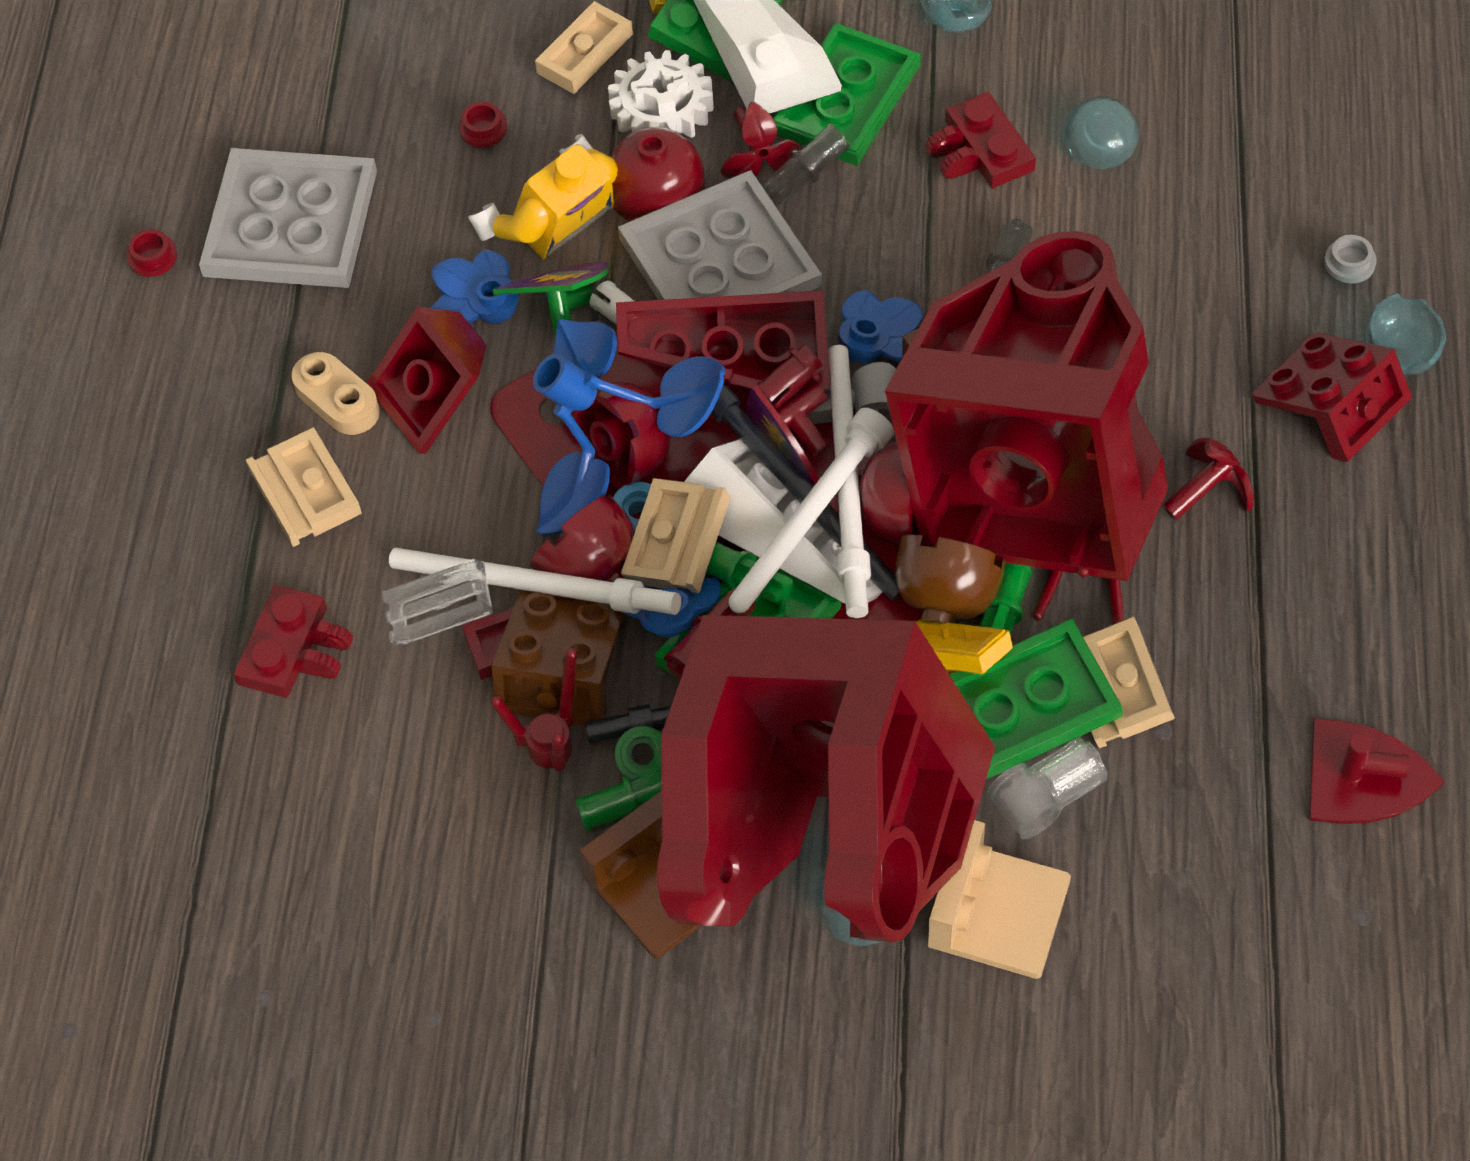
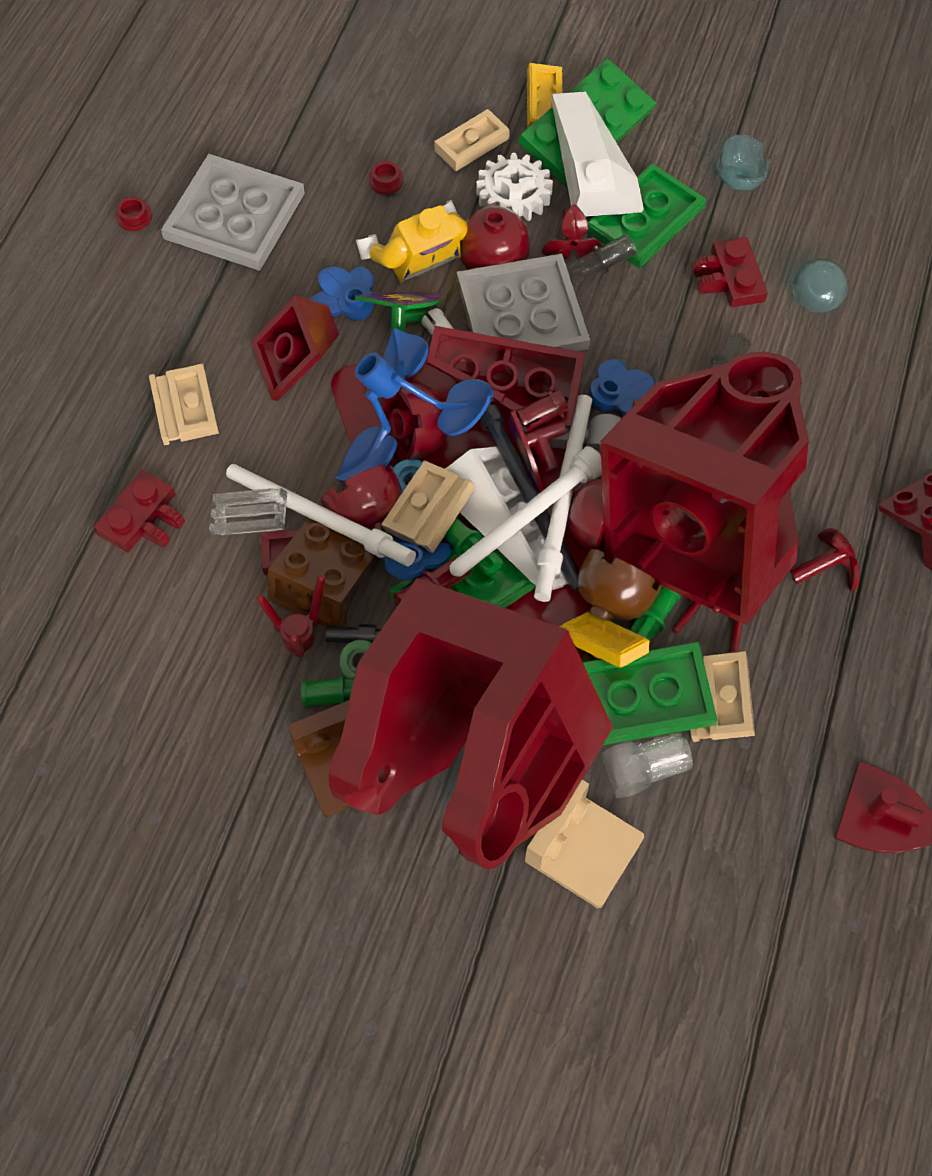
camera: 10 degrees right, 5 degrees up
(332, 389) = (225, 340): tan plate -> none

